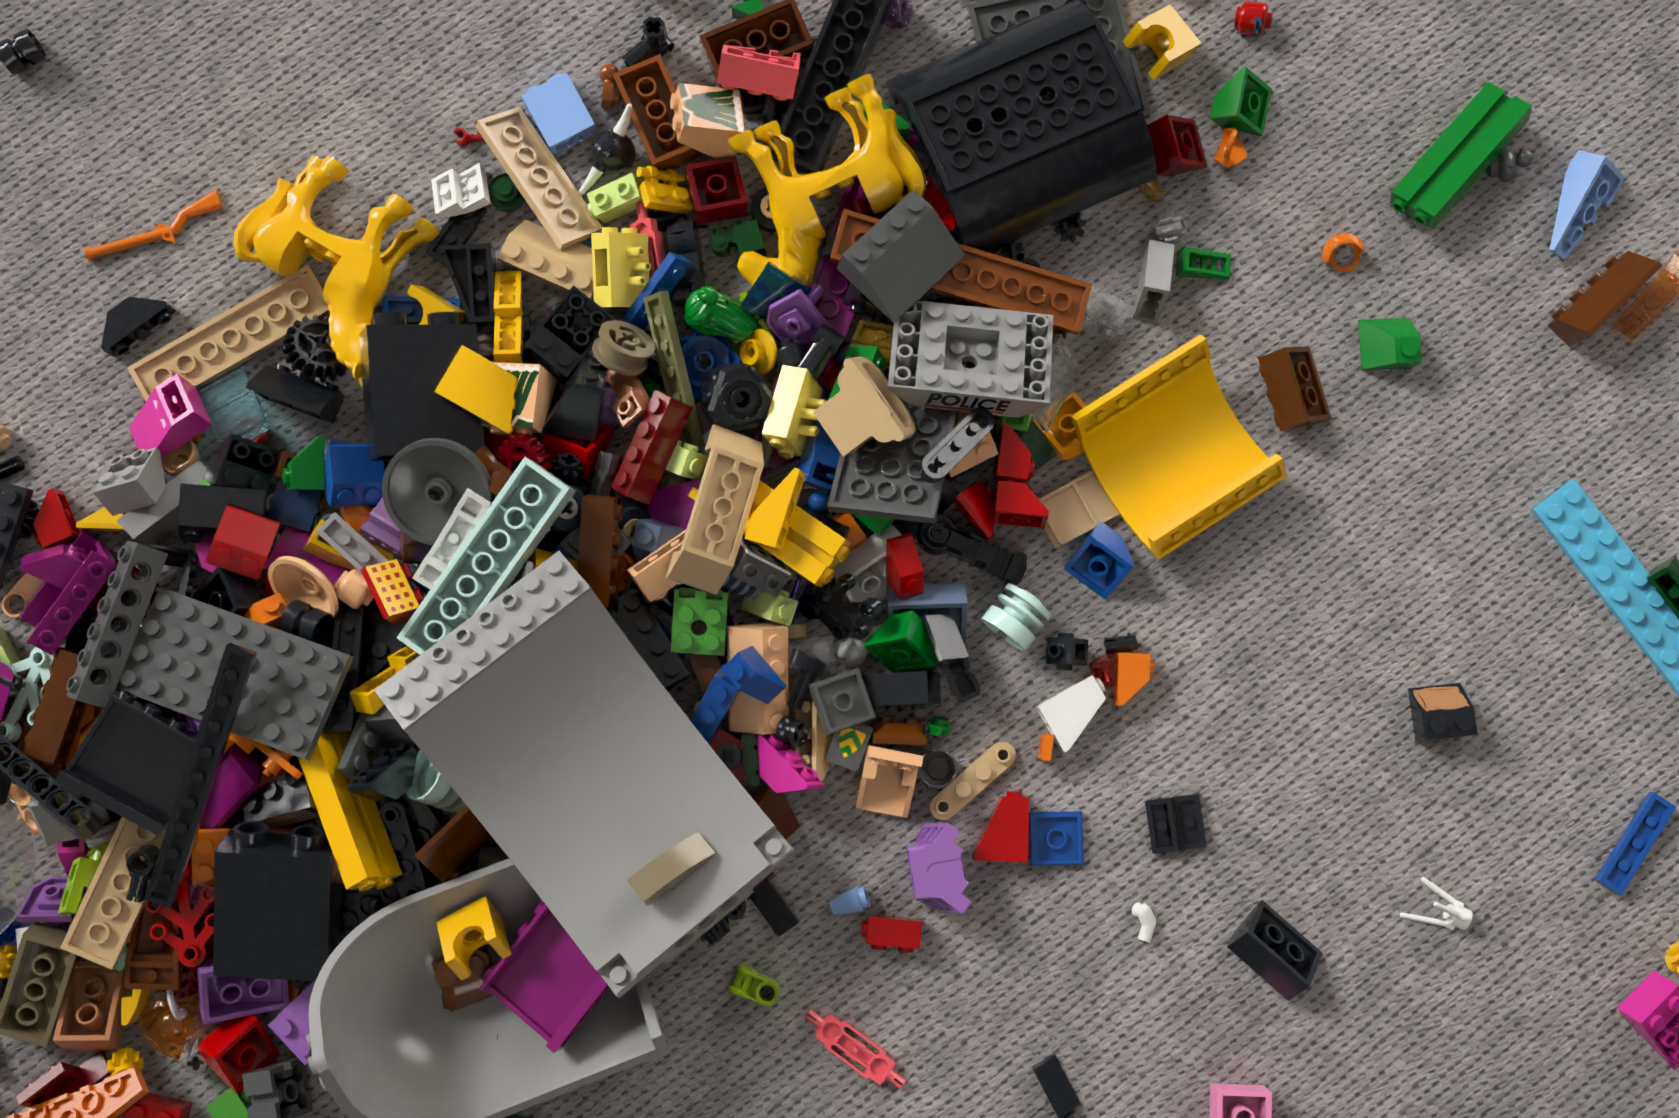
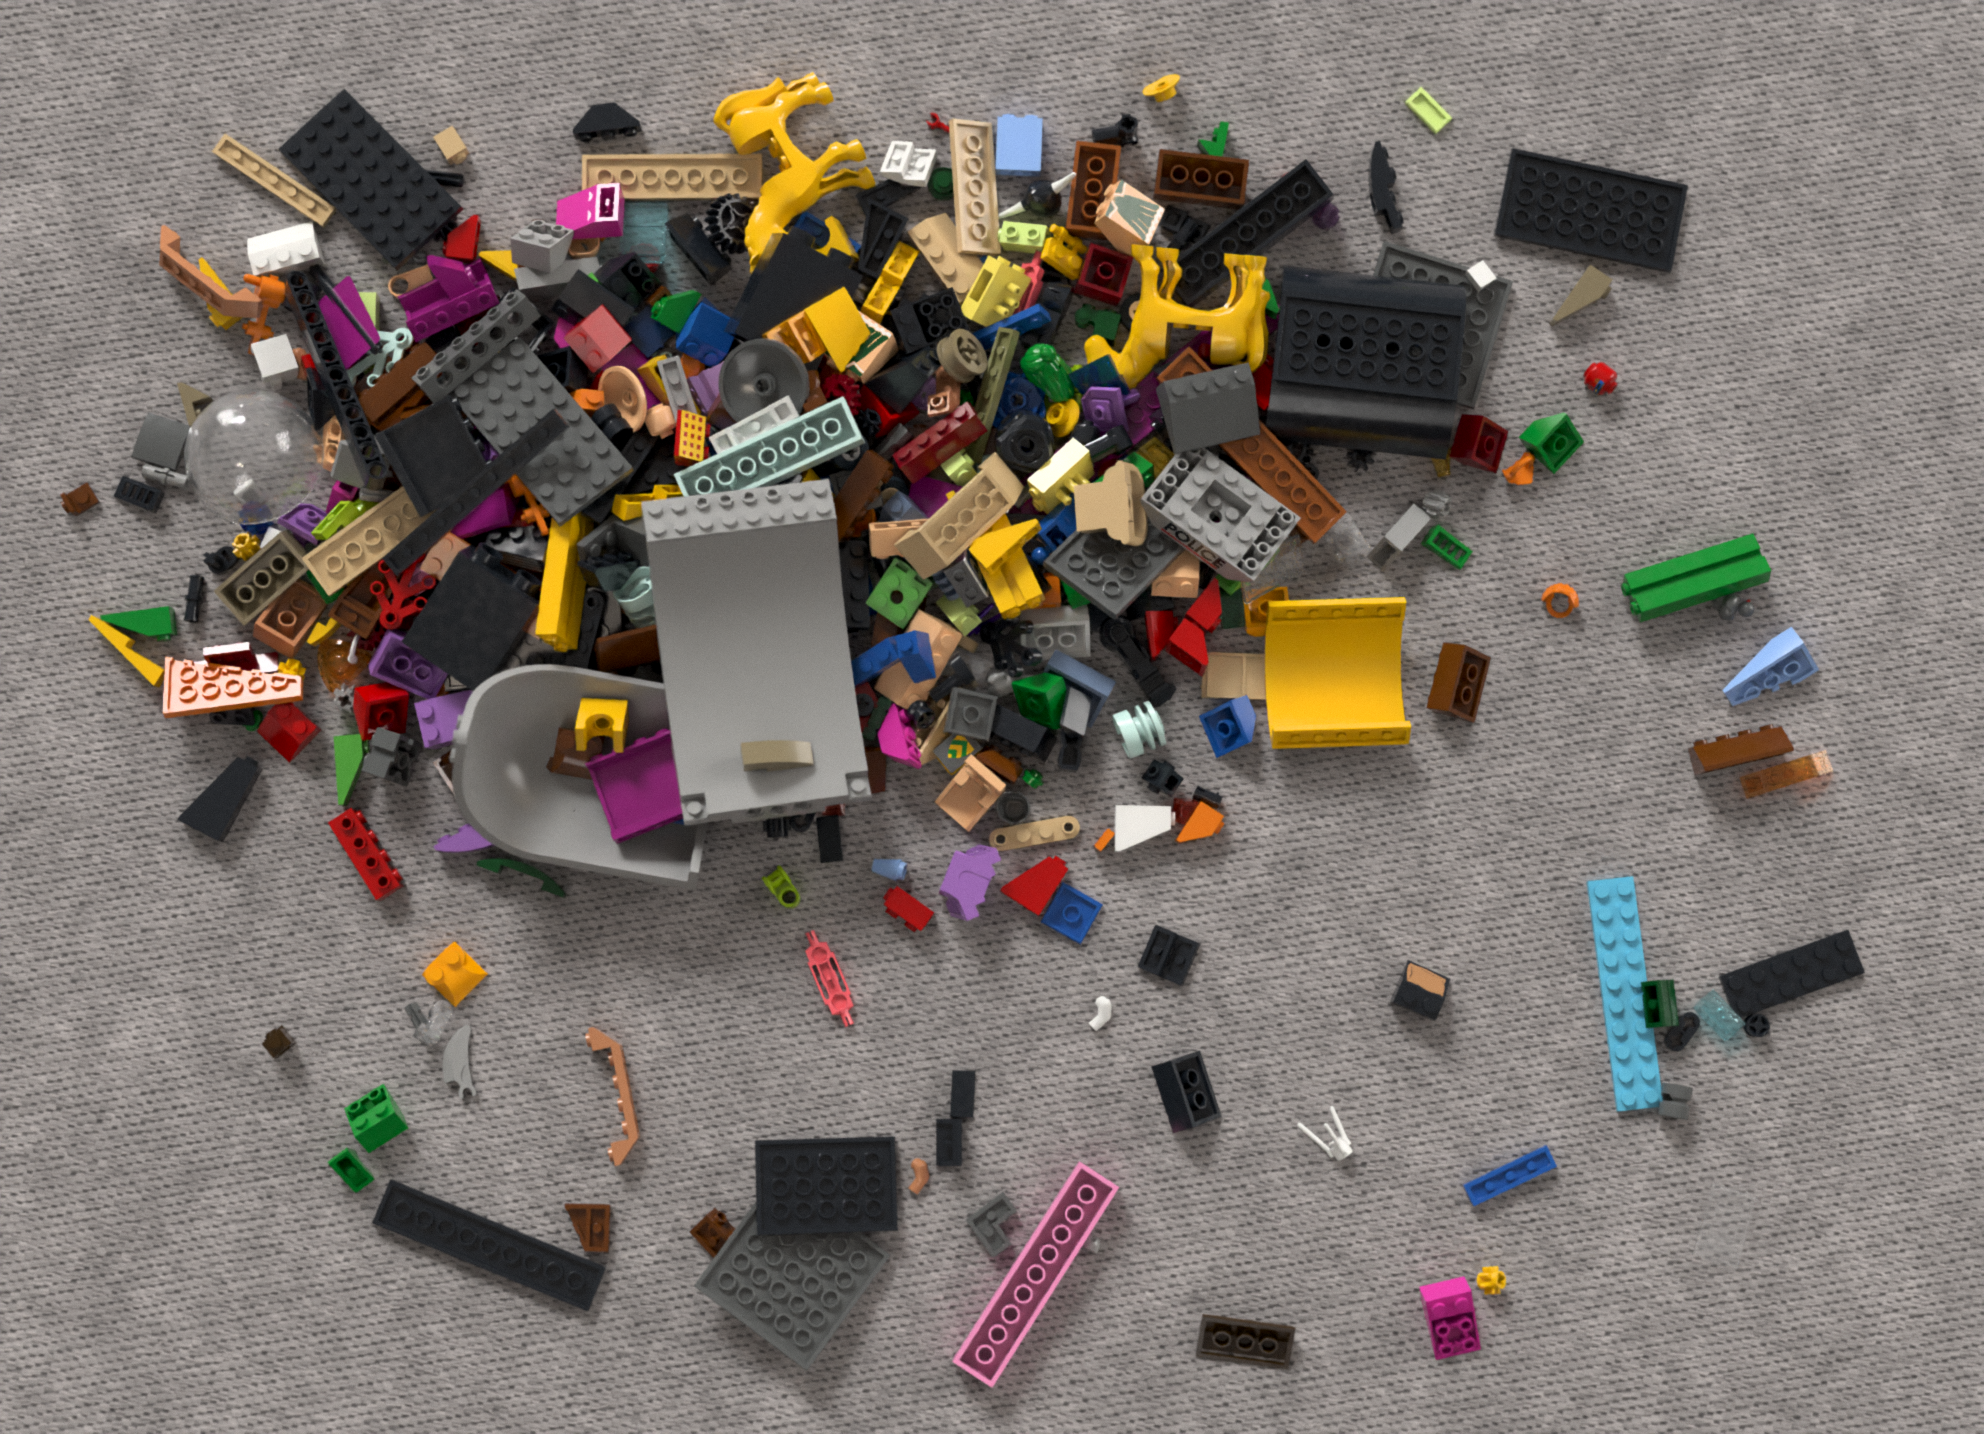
camera: 30 degrees right, 0 degrees up
(141, 872) = (391, 538): black pin -> none
(206, 204) = (707, 62): orange piece -> none
(446, 421) = (799, 335): none -> light orange slope
(609, 95) = (1066, 152): dark orange plate -> none
(758, 72) = (1188, 204): coral wedge -> none
(904, 566) = (1076, 641): red slope -> none
(956, 445) = (1166, 571): plate -> none
(1167, 37) = (1523, 355): yellow piece -> none
(1389, 344) = (1552, 690): green slope -> none

